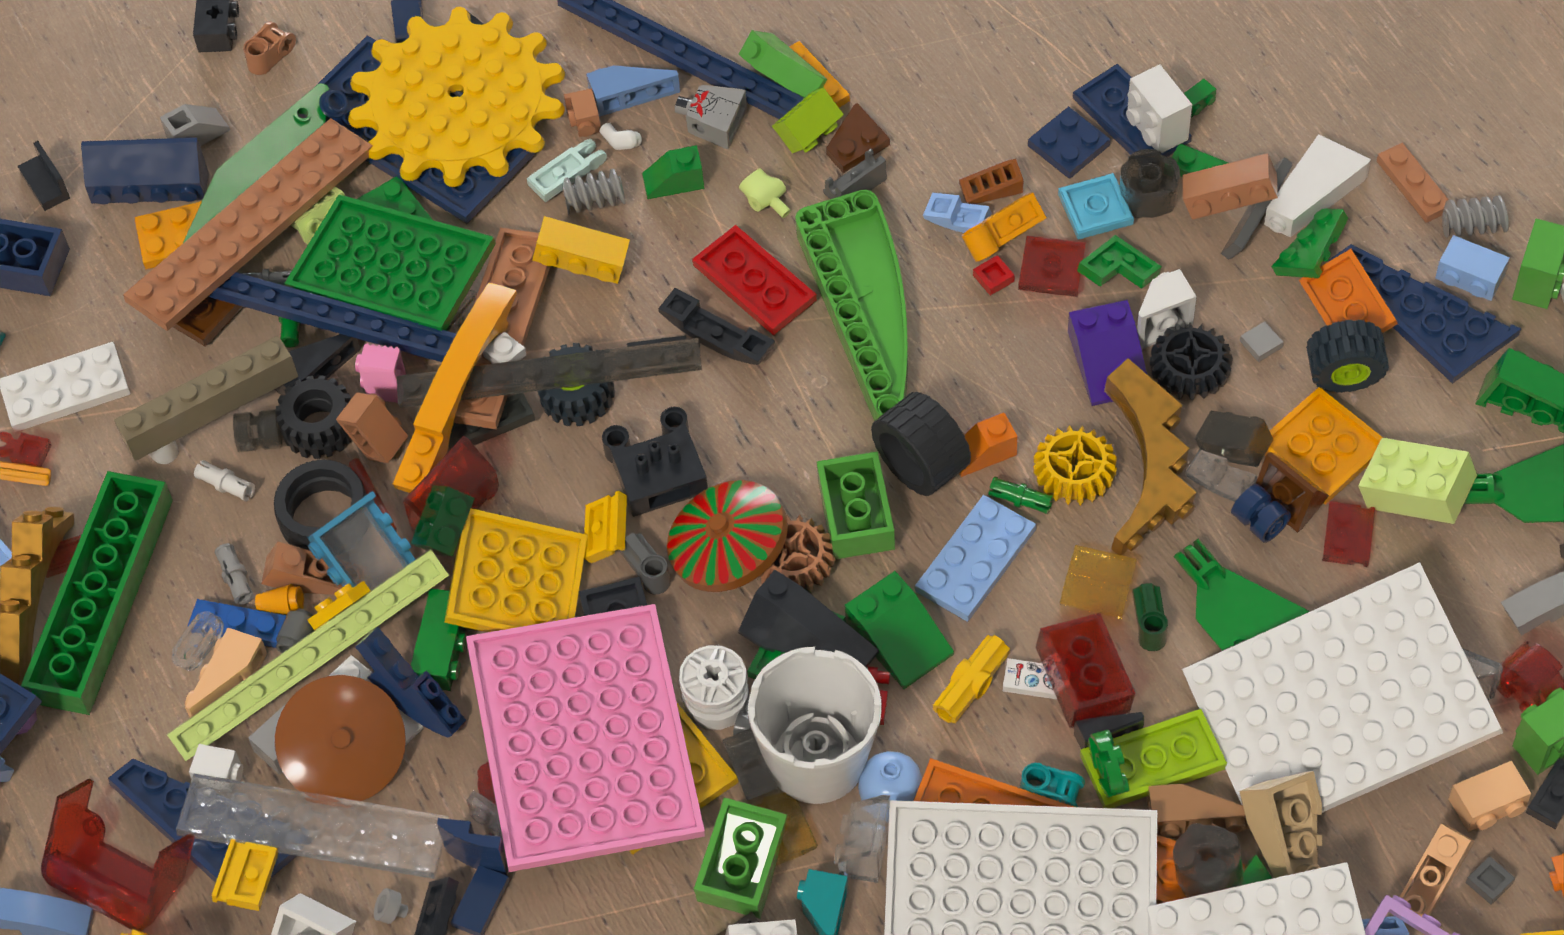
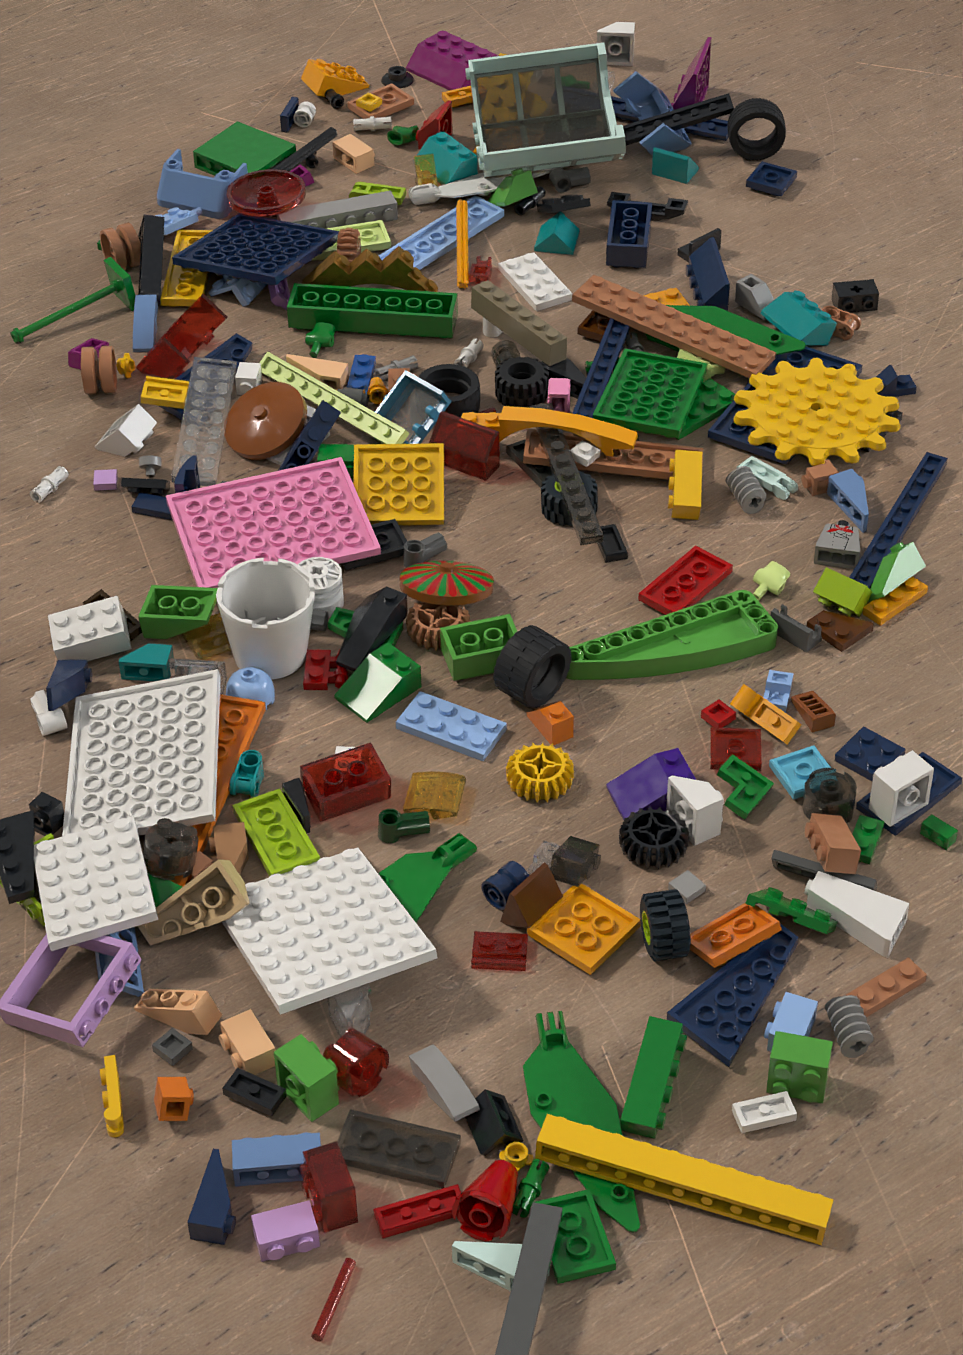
camera: 80 degrees right, 15 degrees down
(135, 668) = (319, 337): none -> green piece
(197, 641) = (346, 356): clear plate -> none
(259, 84) = (800, 318): none -> teal slope
(333, 103) = (788, 351): dark blue plate -> none
(345, 597) = (367, 400): yellow plate -> none
(372, 427) = (512, 393): nougat brick -> none
(442, 520) = (433, 431): dark green brick -> none
(605, 526) = (459, 526): yellow plate -> none
(620, 139) = (803, 501): white arm -> none
(657, 469) = (505, 549): black piece -> none
(674, 173) = (777, 533): green slope -> none
(713, 331) = (637, 564): black slope -> none
(971, 679) = (339, 726): yellow piece -> none
(1021, 495) = (509, 744): green pin -> none
(1108, 761) = (258, 796): green plate -> none
(1153, 418) = (519, 822): pearl gold arch -> none
(1418, 480) = (544, 978): yellowish green brick -> none

